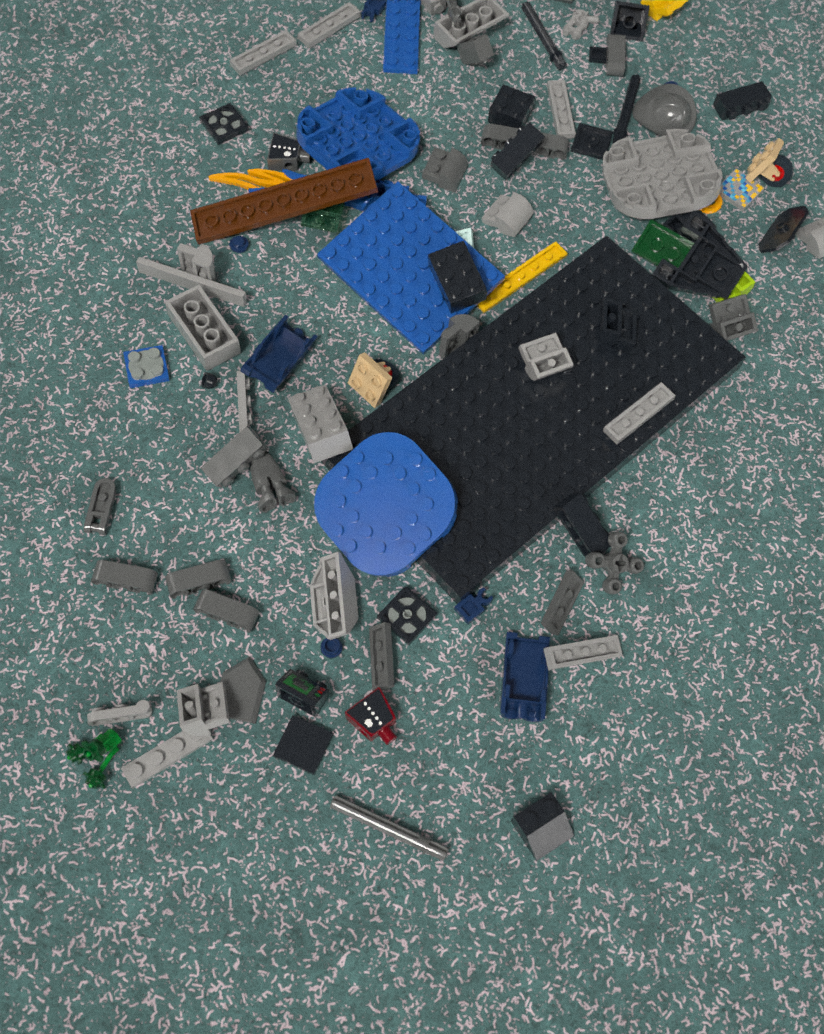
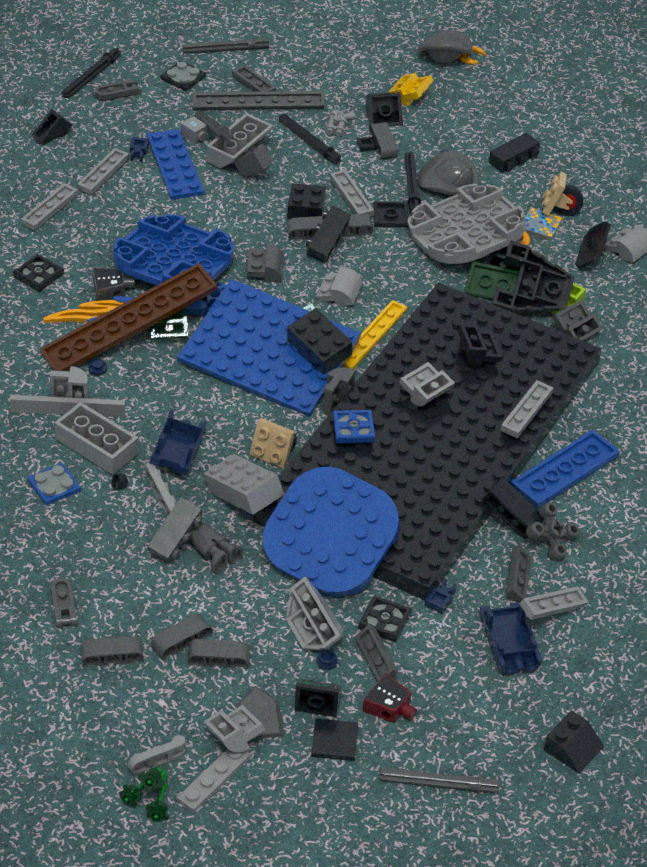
camera: 15 degrees left, 20 degrees down
(454, 386) = (353, 426): none -> blue piece
(657, 487) = (565, 468): none -> blue plate

